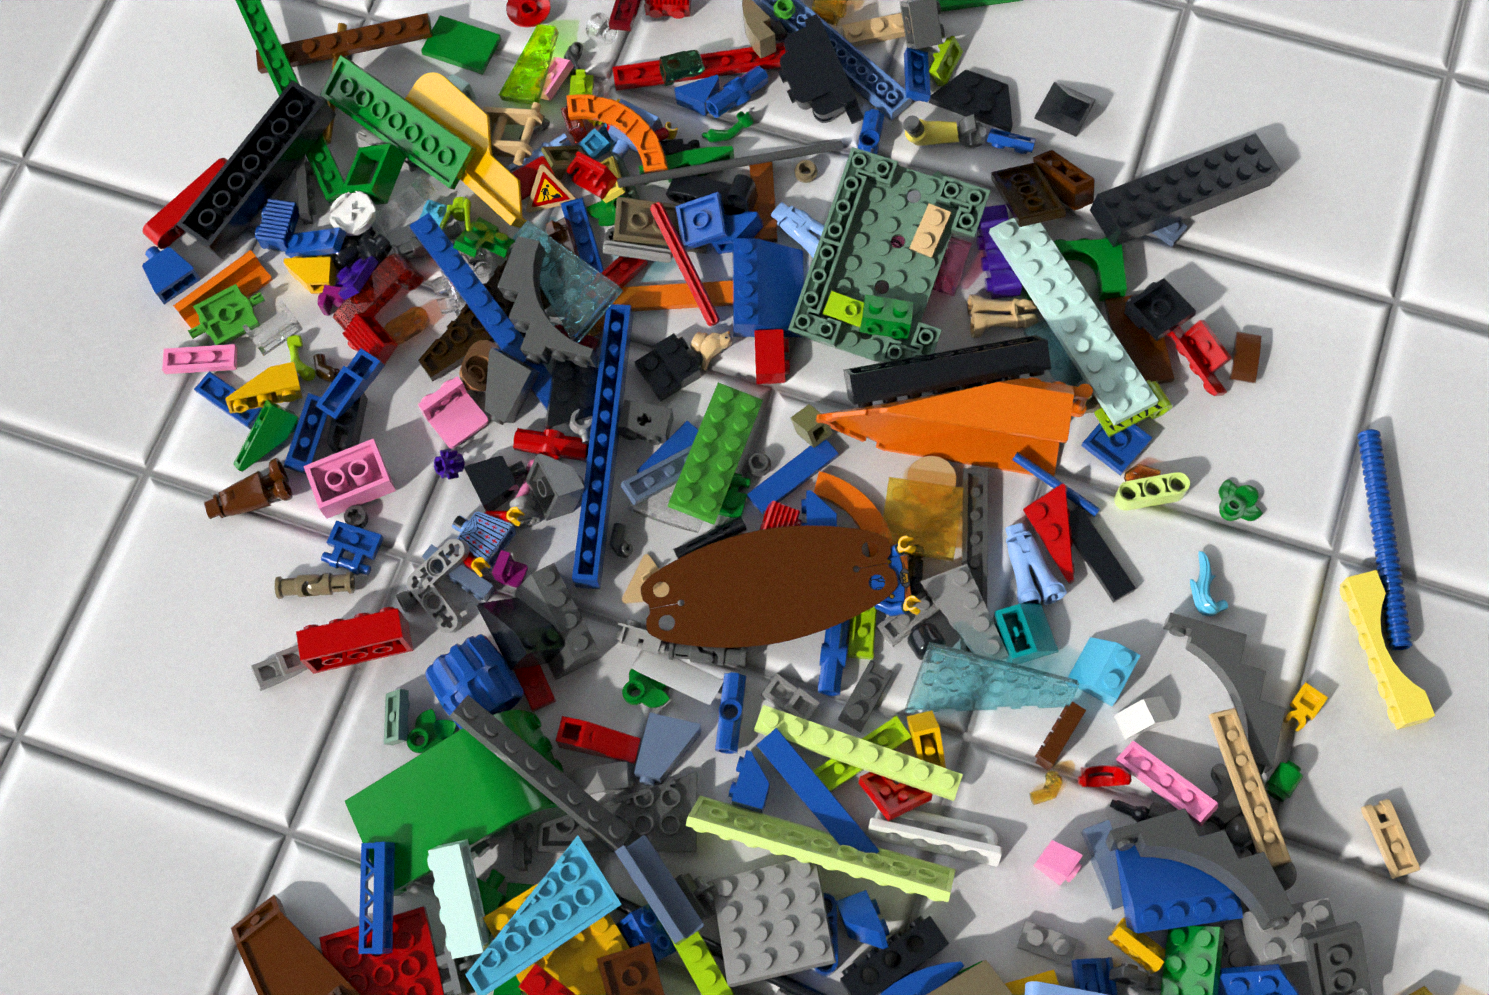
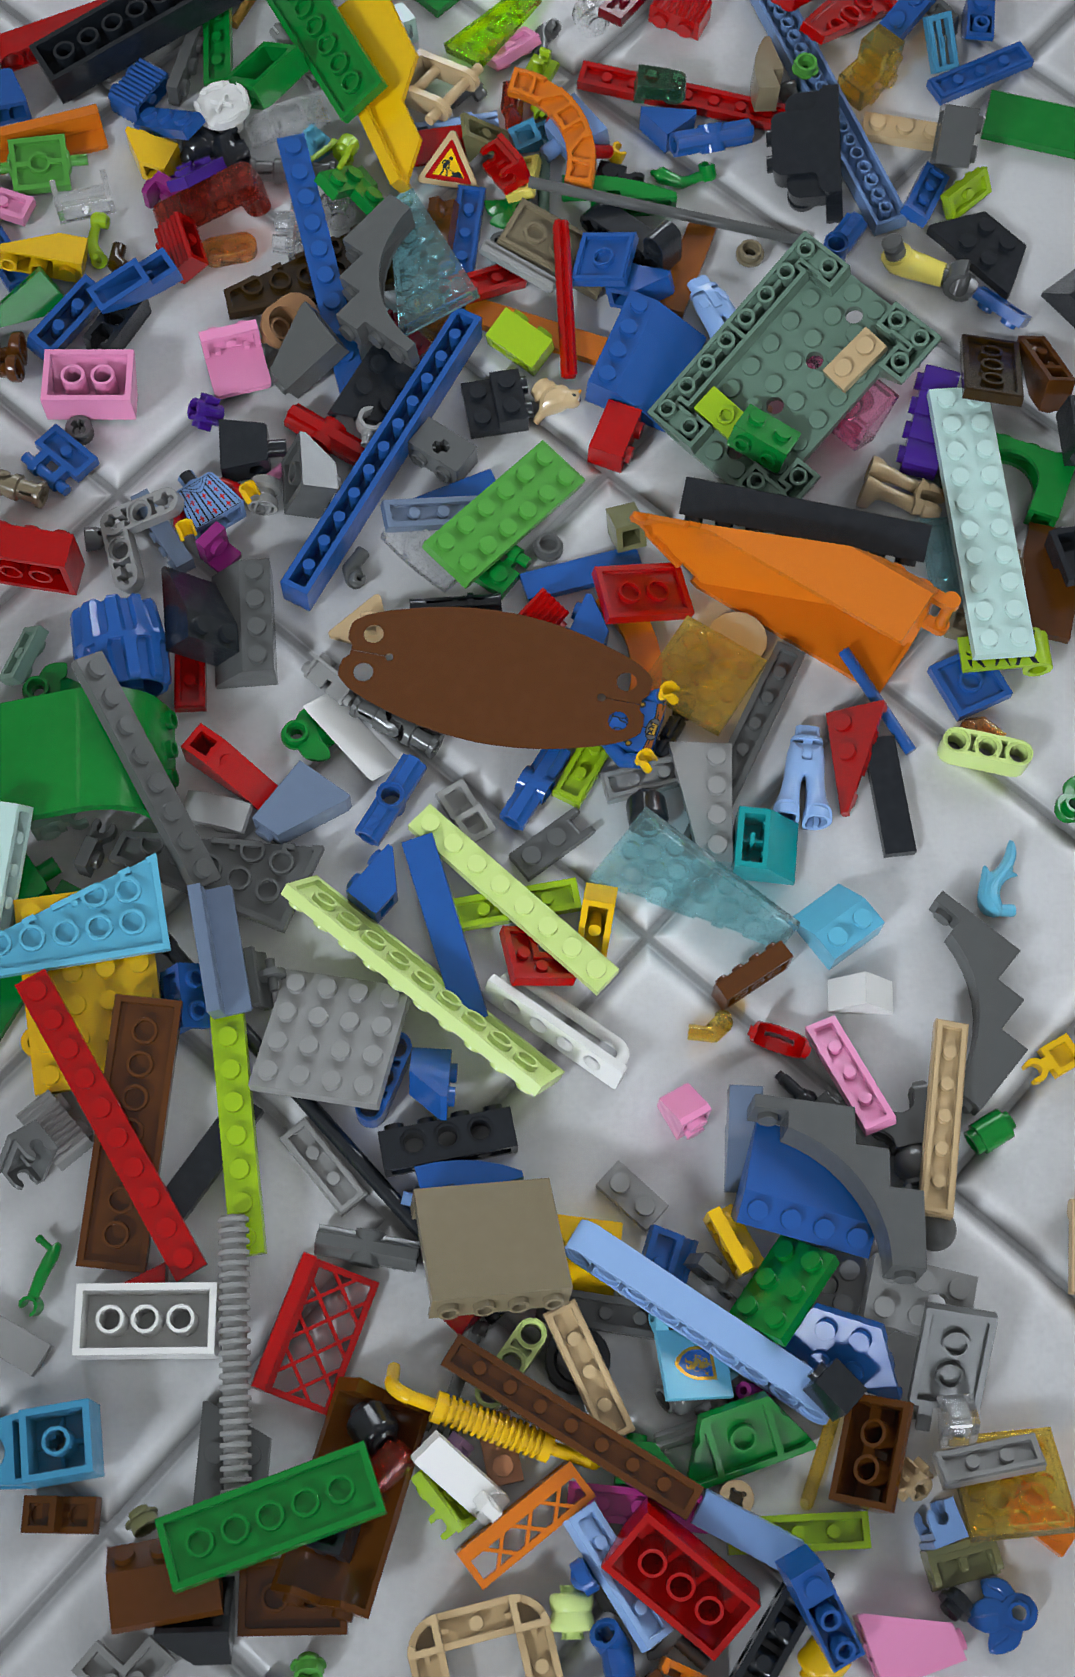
camera: 15 degrees right, 0 degrees up
(666, 310) = (520, 340): none -> lime brick
(847, 472) = (642, 593): none -> red plate

